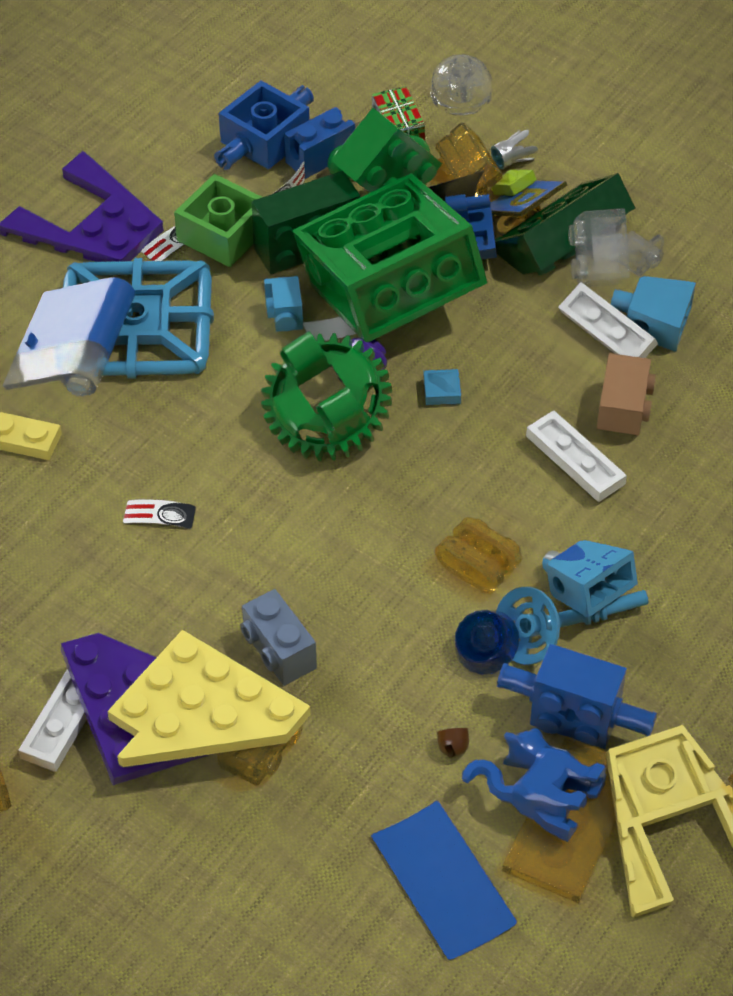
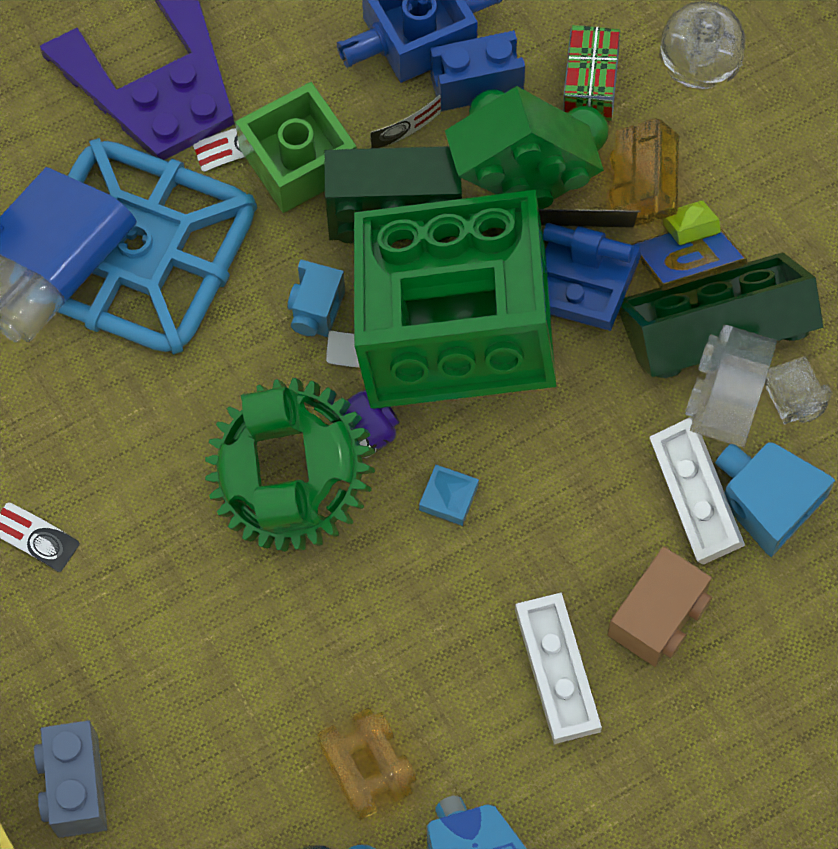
camera: 25 degrees right, 15 degrees up
(505, 153) = (706, 172): flat silver piece -> none

